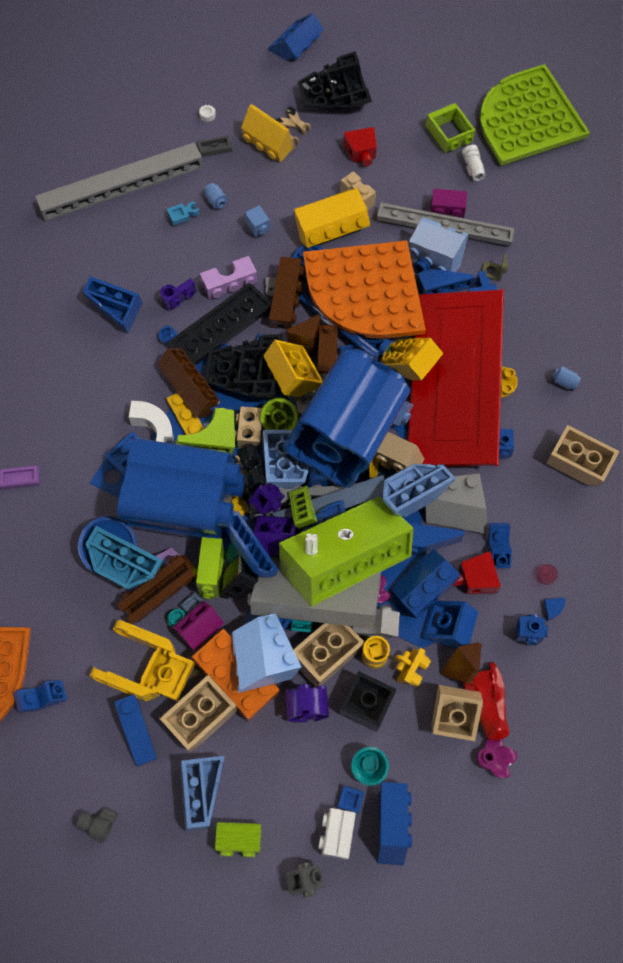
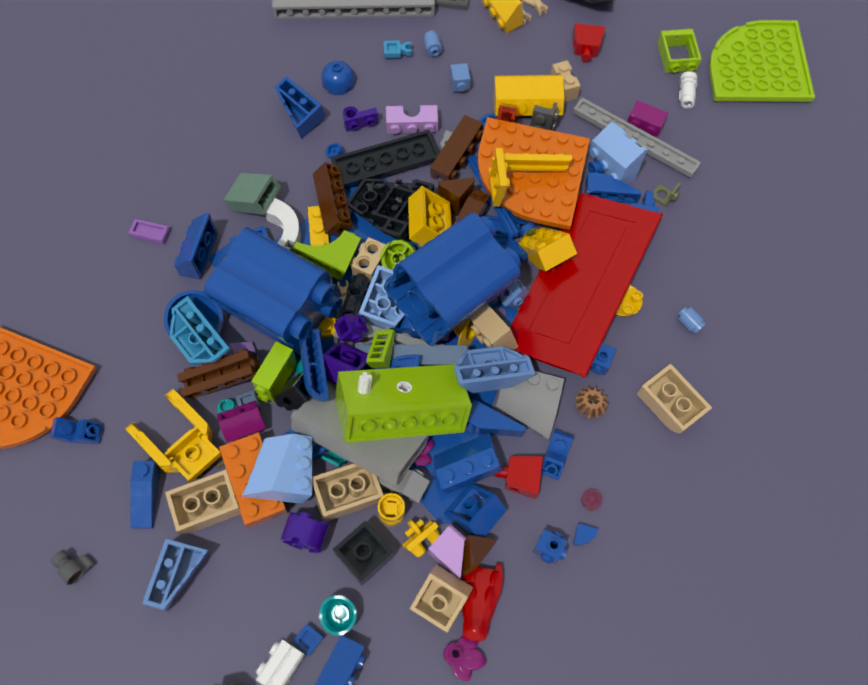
camera: 20 degrees right, 0 degrees up
(75, 476) = (196, 247): none -> blue slope
(108, 403) = (252, 193): none -> sand green brick
(137, 261) = (337, 78): none -> blue cylinder
(238, 839) = (187, 632): lime brick -> none
(320, 240) = (507, 112): none -> clear red slope
(341, 303) = (520, 162): none -> yellow bracket
(356, 234) = (544, 117): none -> dark grey bracket
(445, 668) = (449, 550): none -> lavender slope
(502, 486) = (585, 397): none -> medium nougat gear

